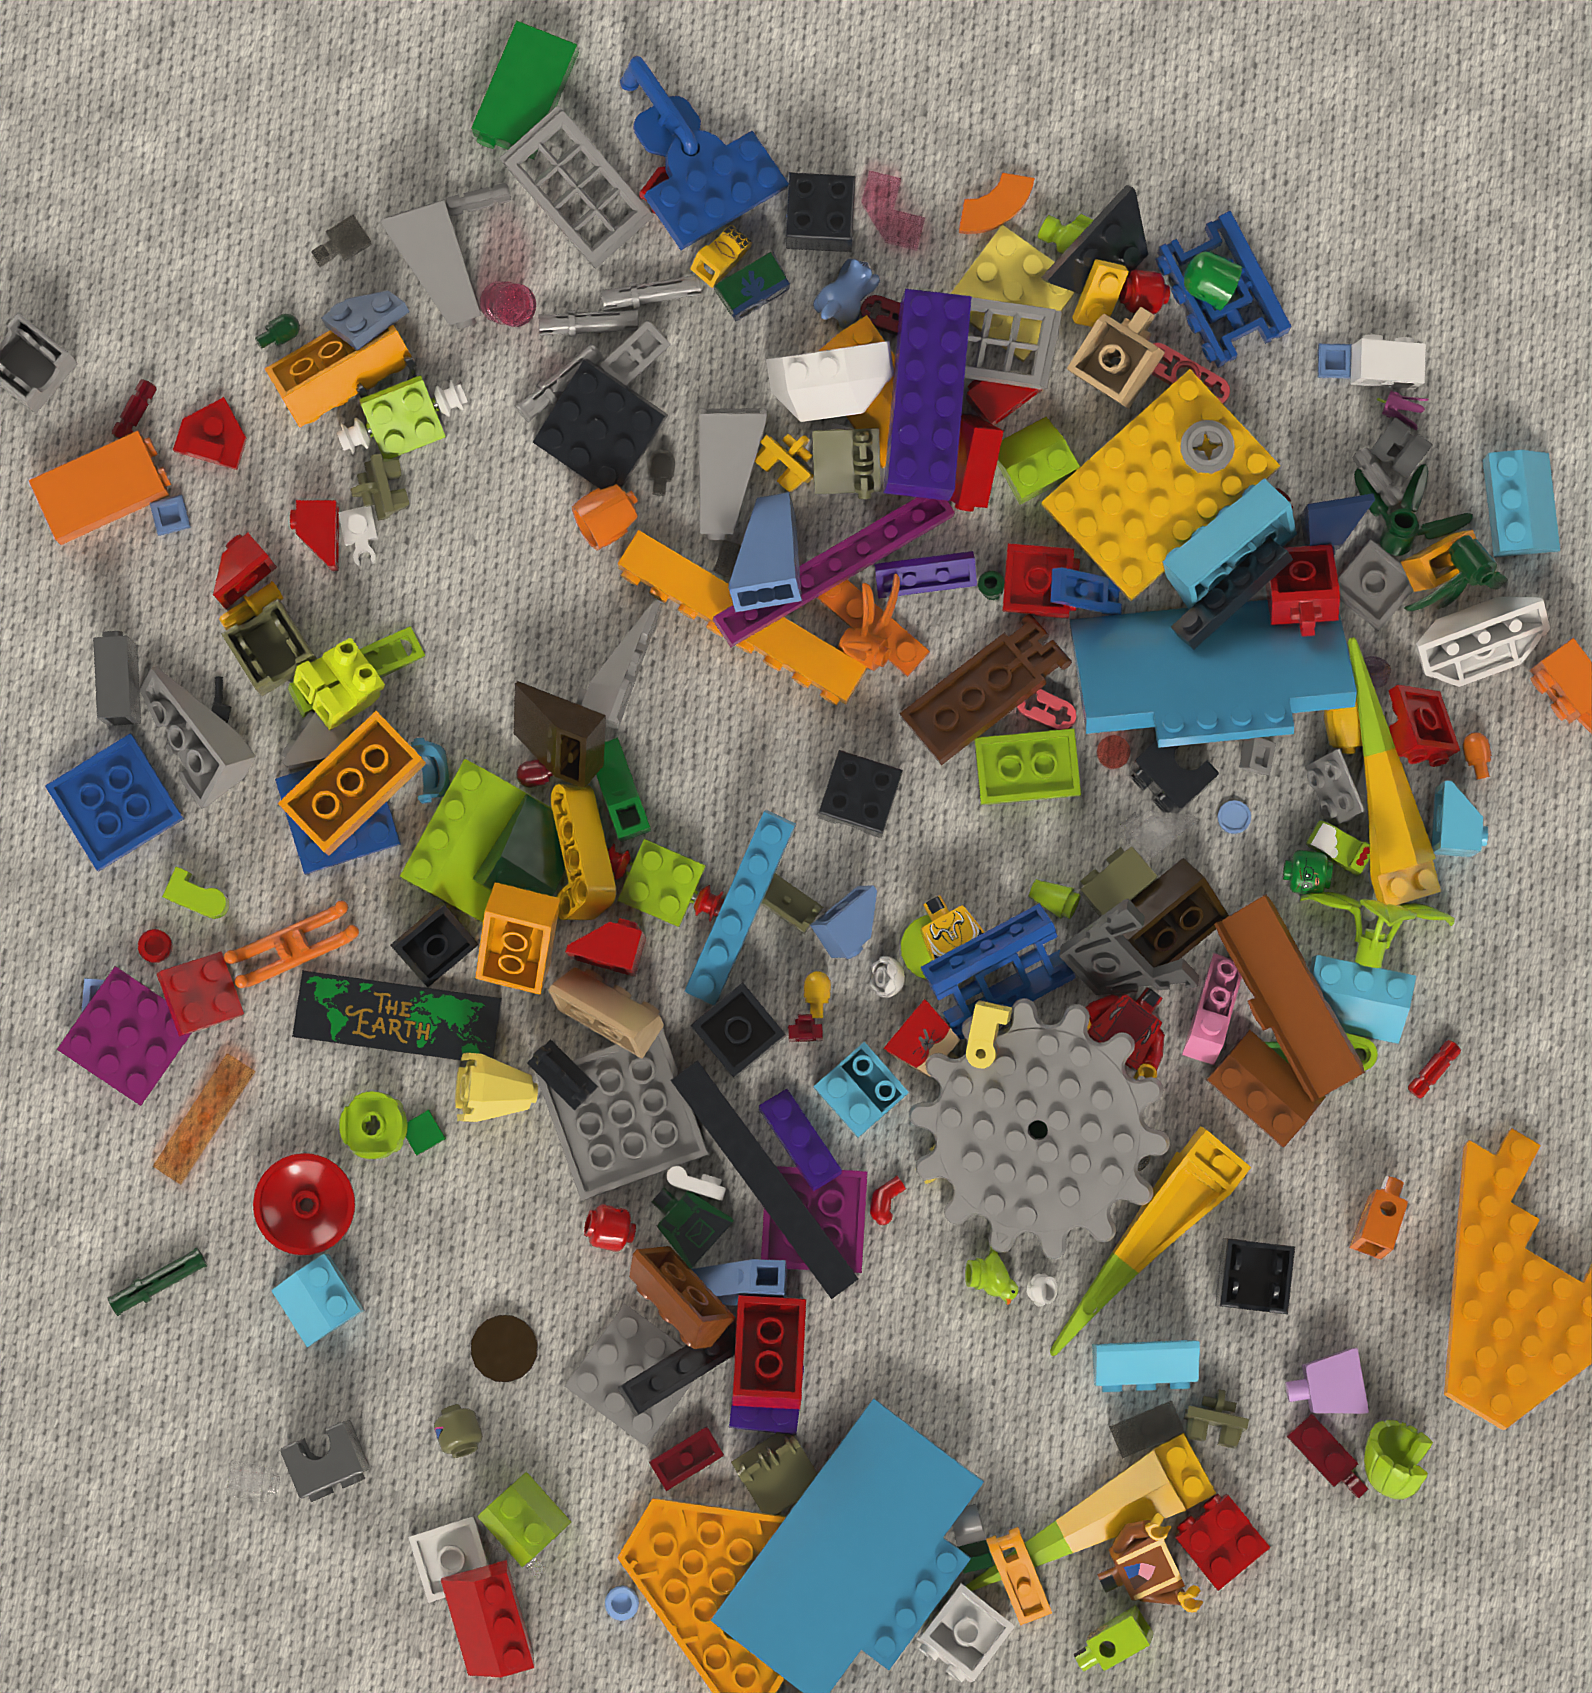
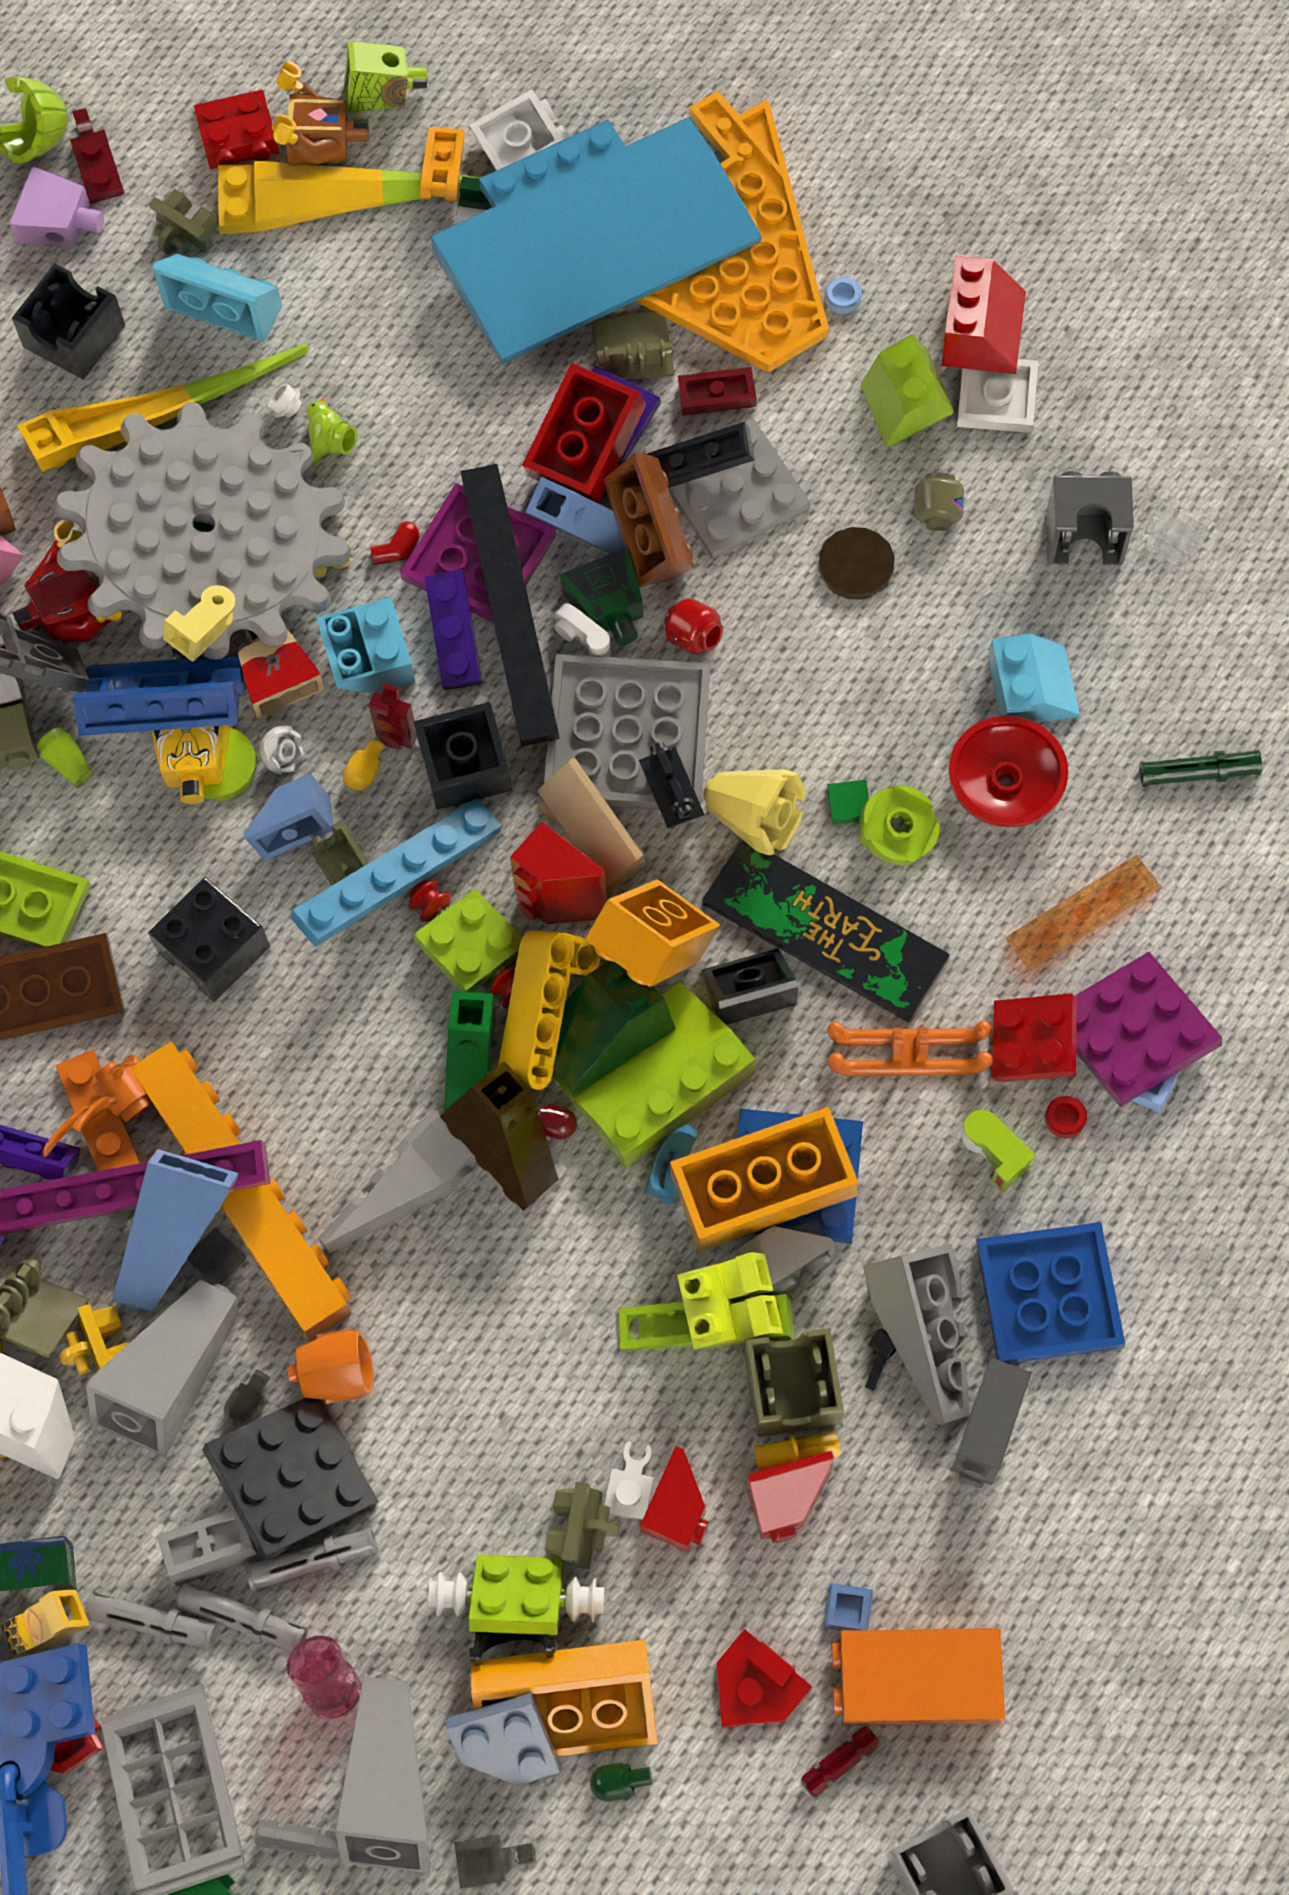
camera: 155 degrees left, 15 degrees down
(1146, 1429) = (252, 244): clear smoke plate -> none

